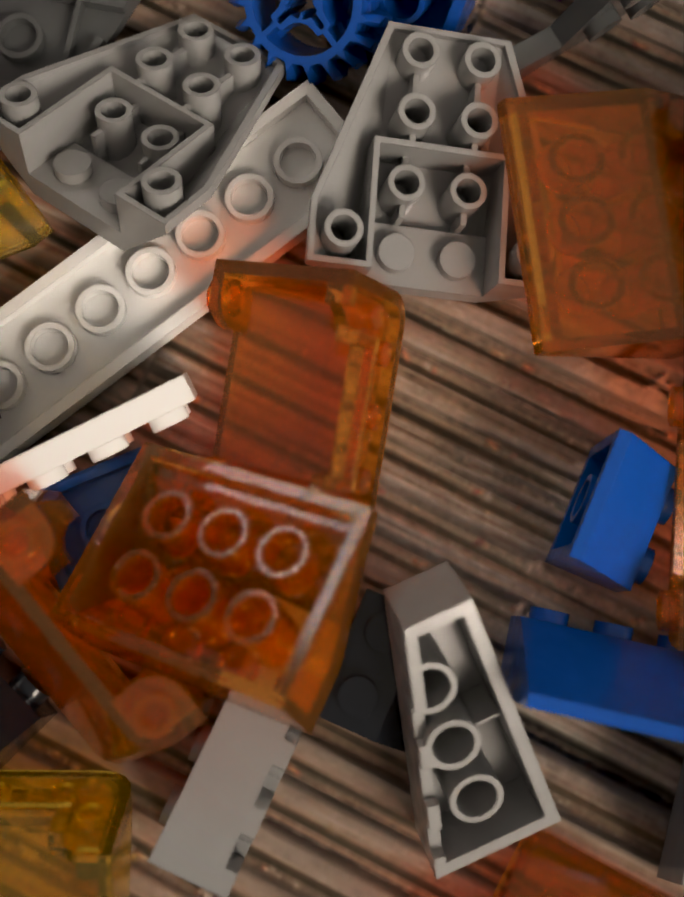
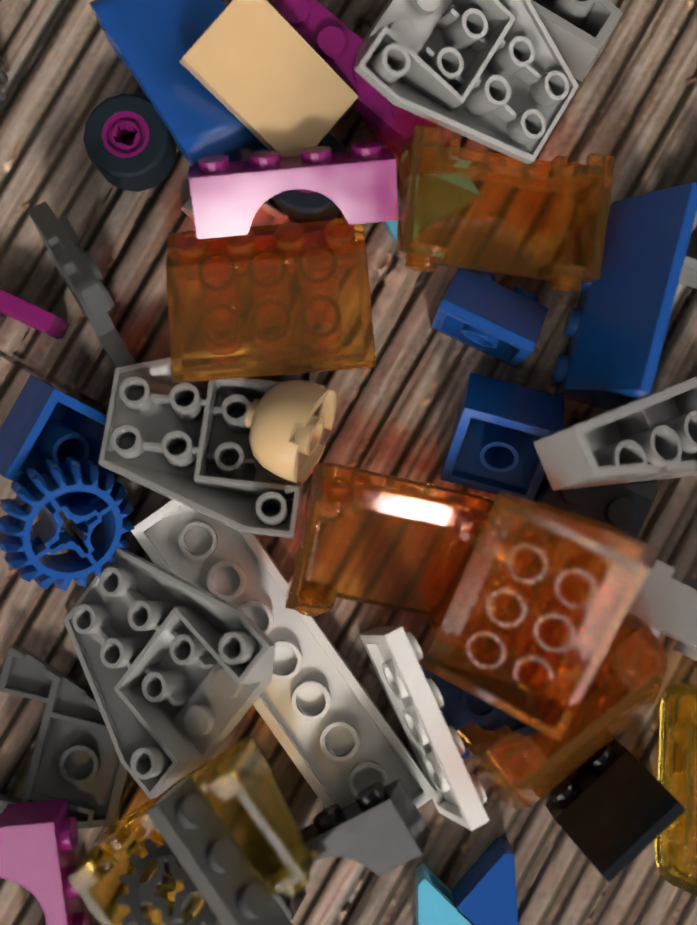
camera: 85 degrees left, 5 degrees up
(447, 254) = (289, 427): none -> tan cylinder
(458, 519) = (496, 434): none -> blue slope

